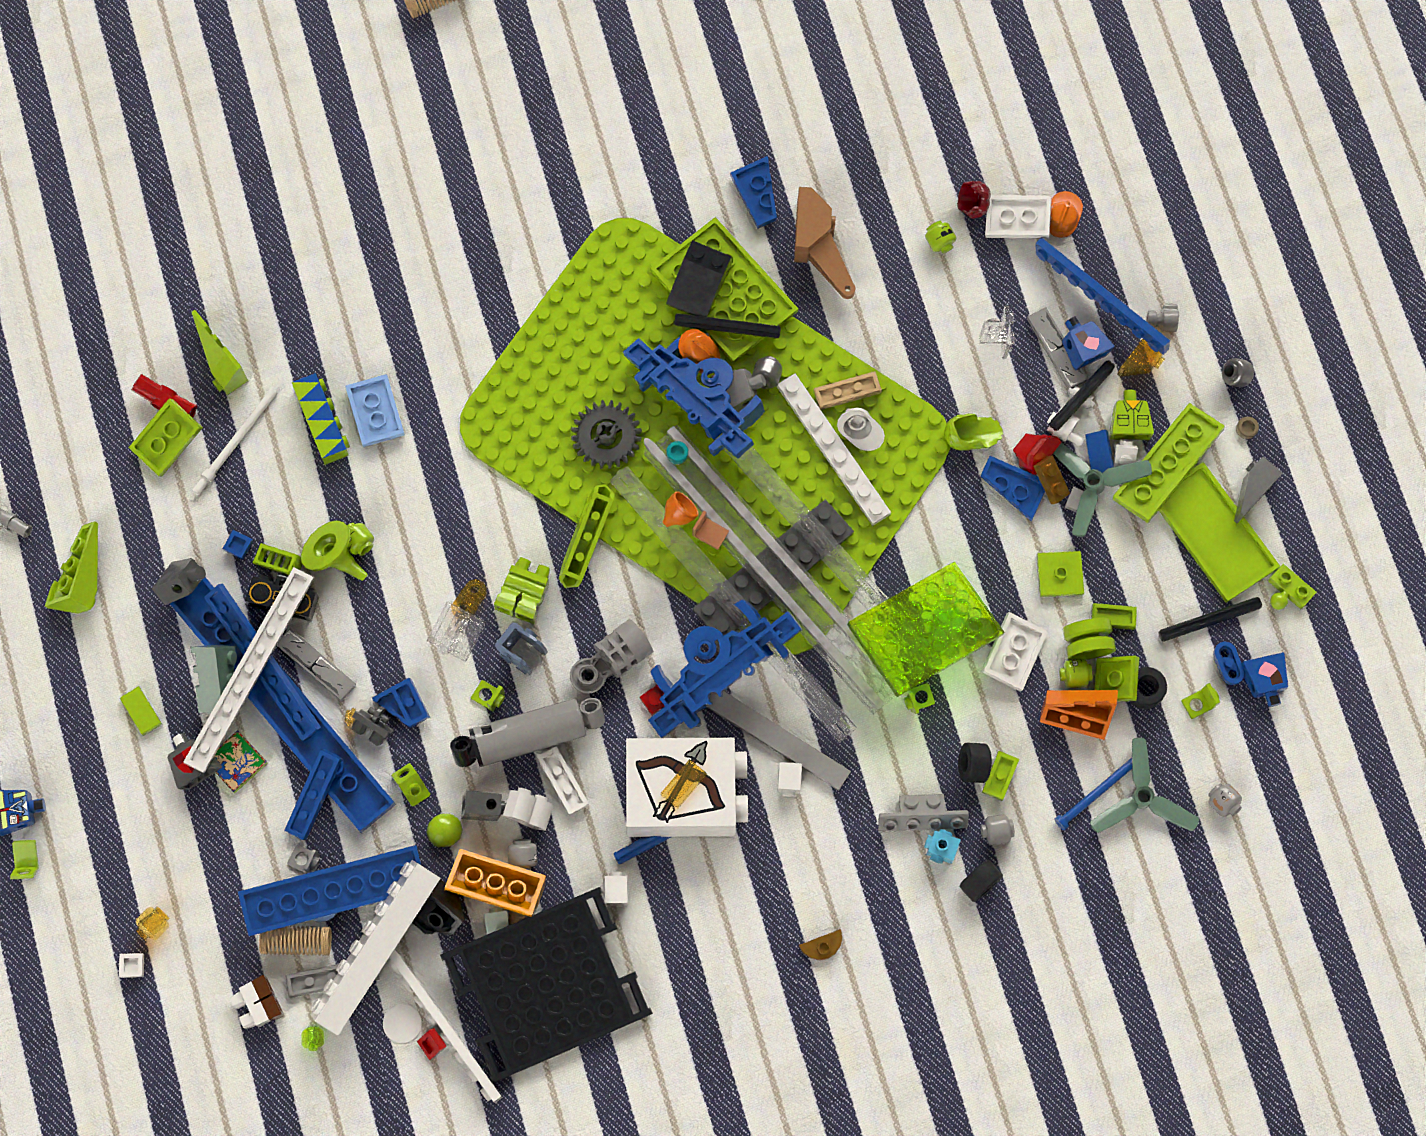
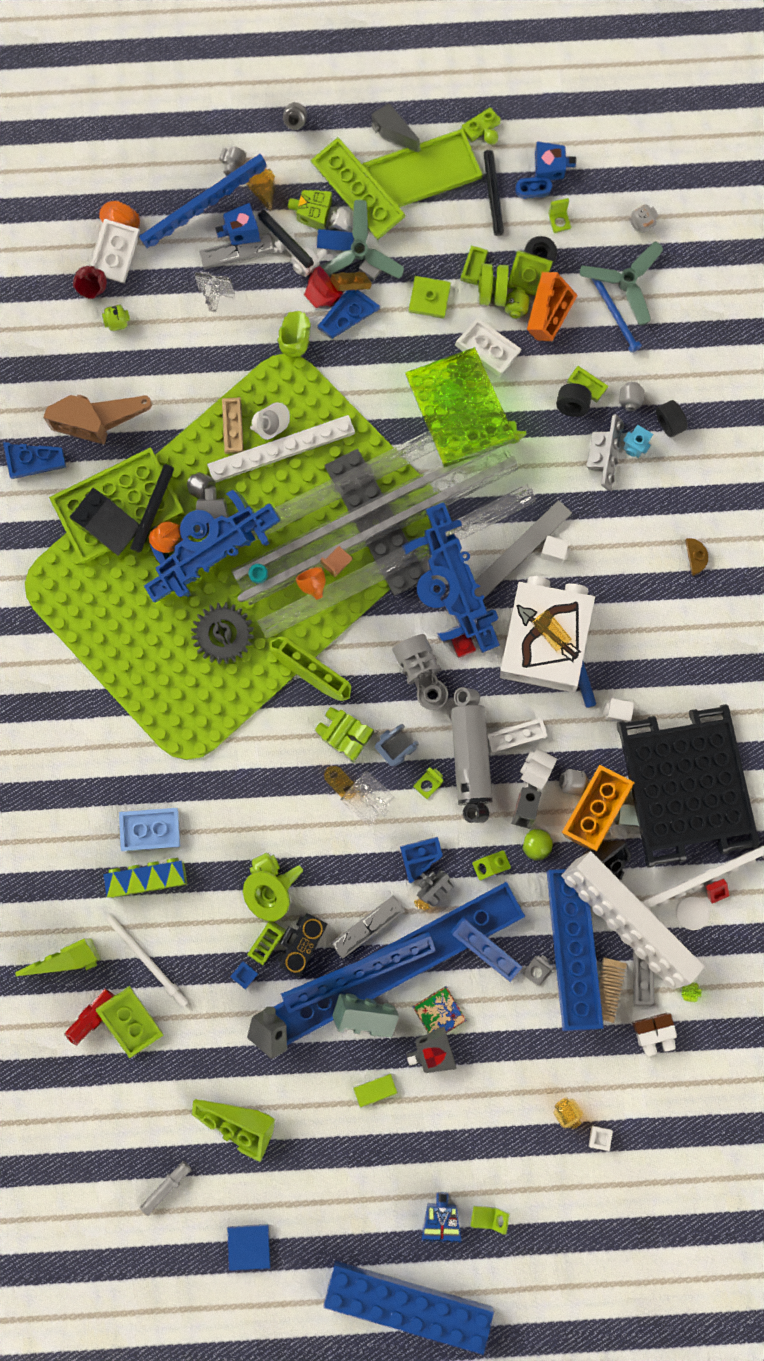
camera: 75 degrees left, 5 degrees up
(248, 670) = (368, 984): white plate -> none
(1247, 427) = (341, 123): dark tan tile -> none

